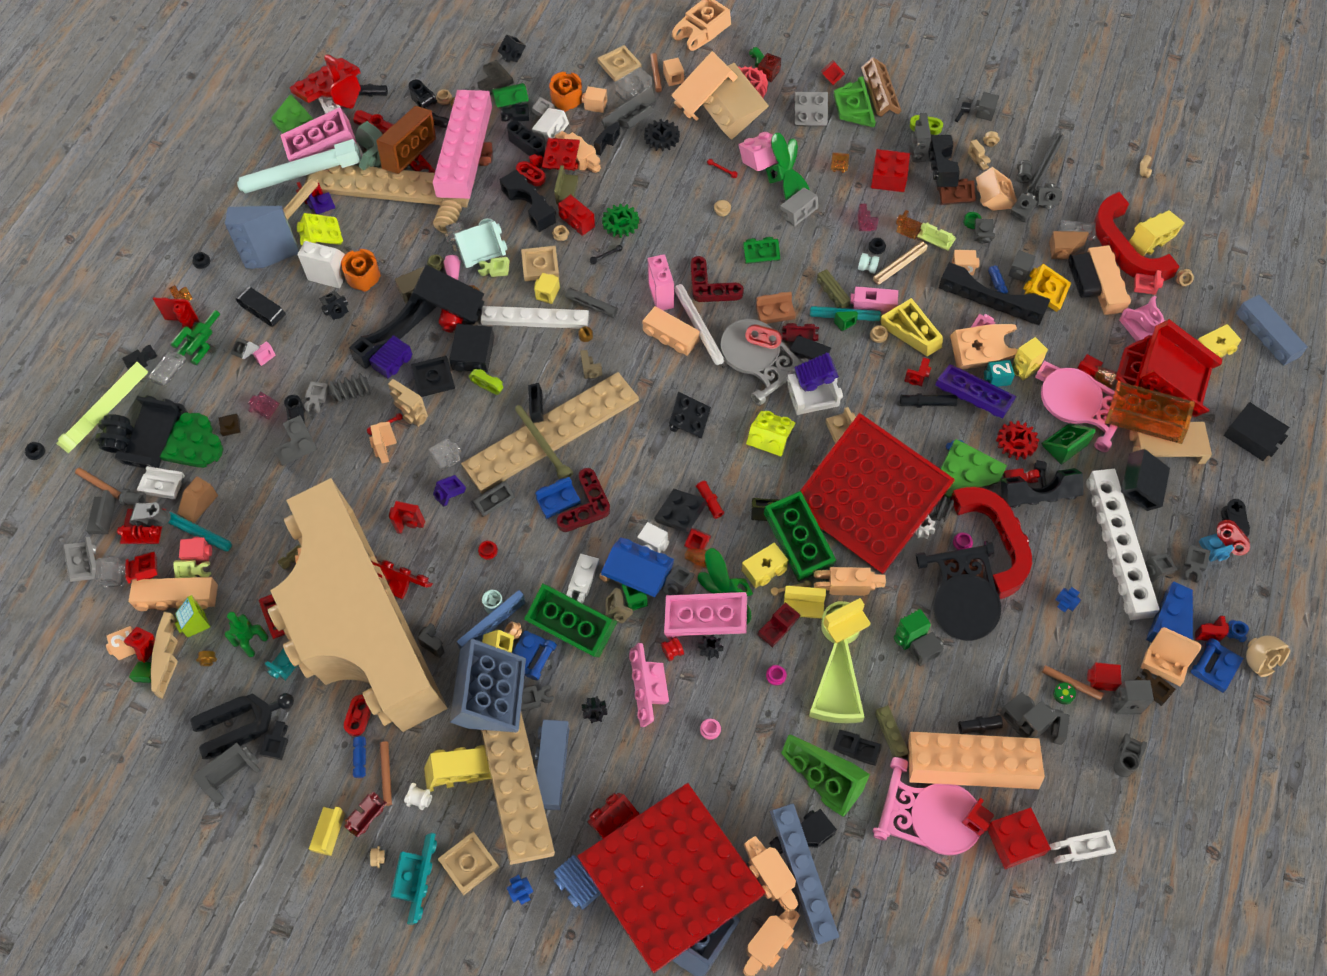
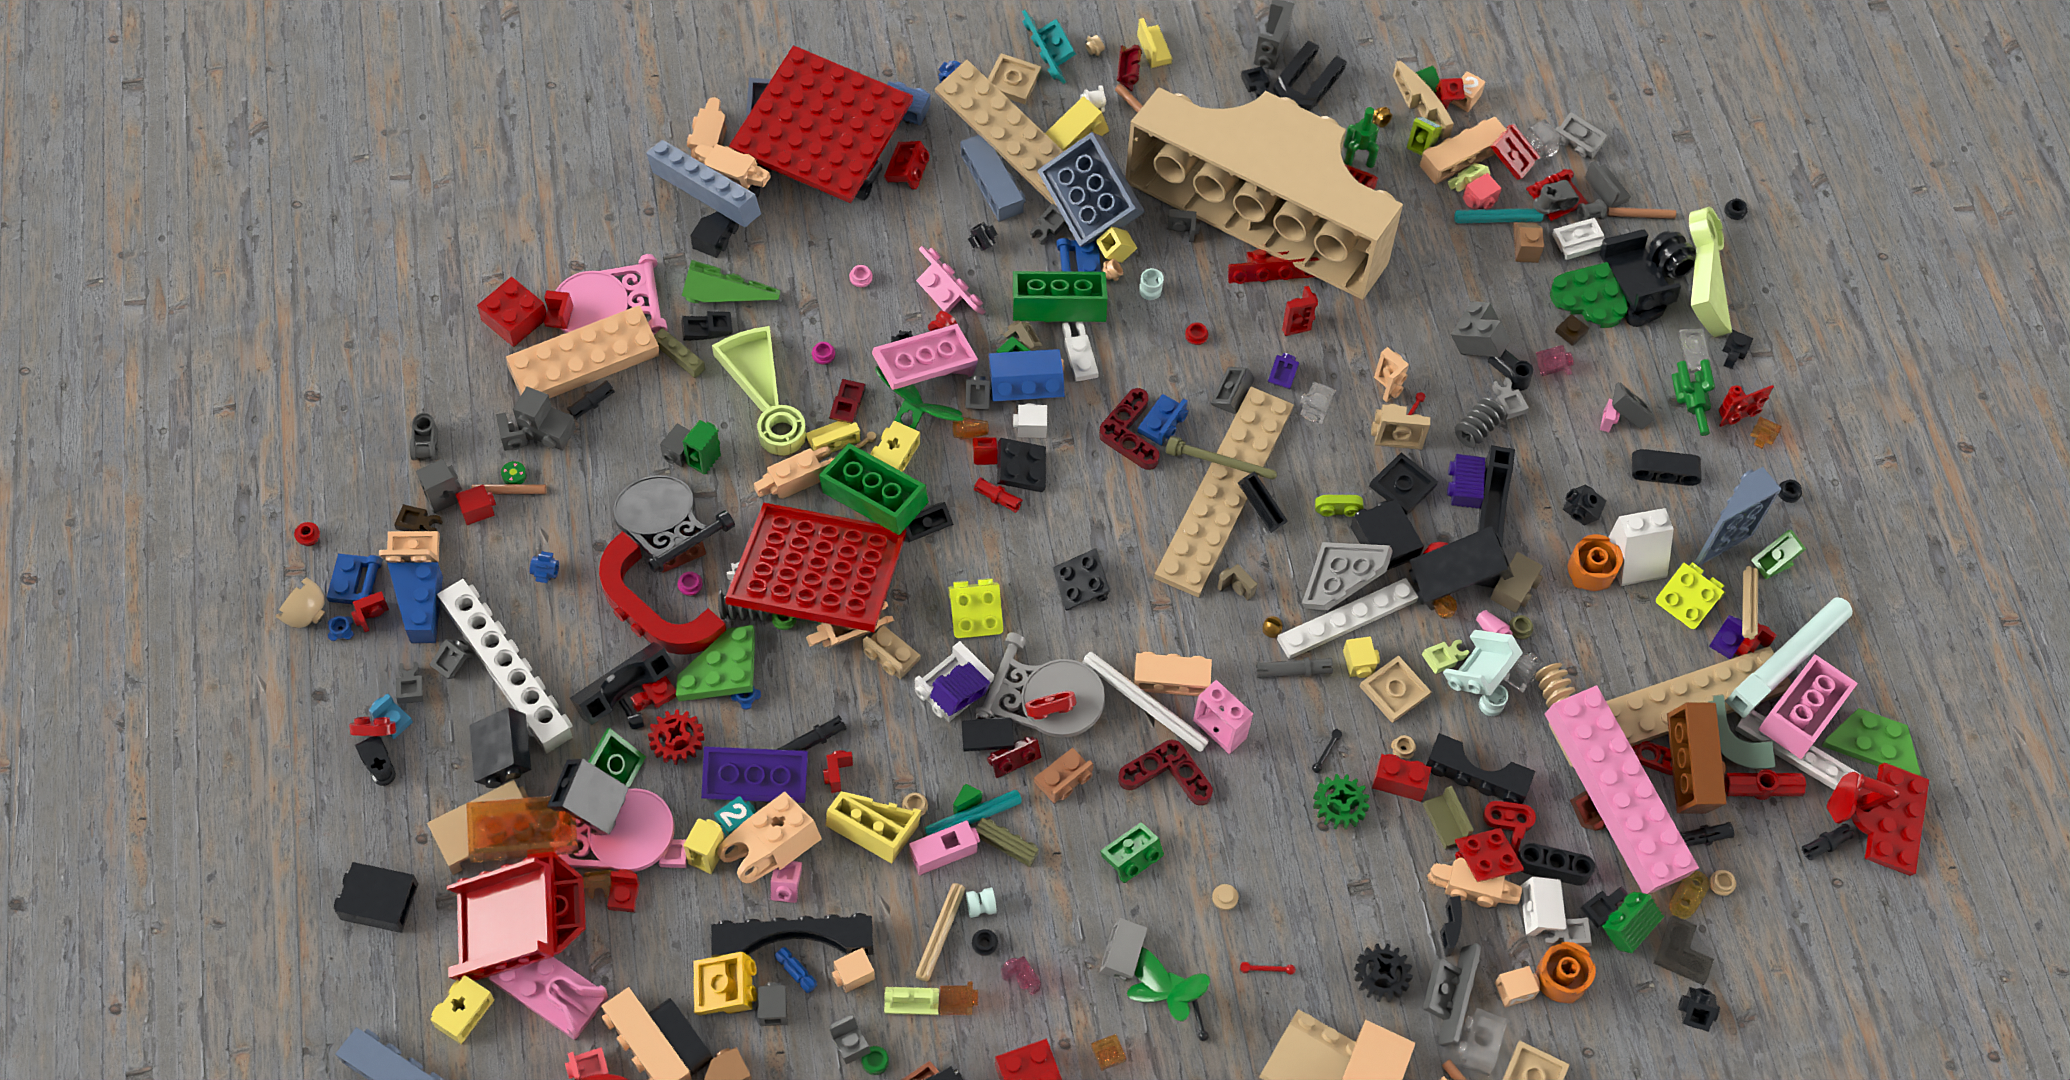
camera: 145 degrees right, 0 degrees up
(421, 94) = (1749, 862): black piece -> none
(494, 619) = (1138, 267): medium blue tile -> none
(518, 334) = (1343, 571): none -> light grey plate
(758, 152) = (1226, 1004): bright pink brick -> none
(846, 621) = (775, 419): light yellow panel -> none
(1085, 847) = (444, 336): white hinge -> none
(1101, 401) = (588, 795): none -> panel
(1243, 724) = (309, 539): none -> red plate

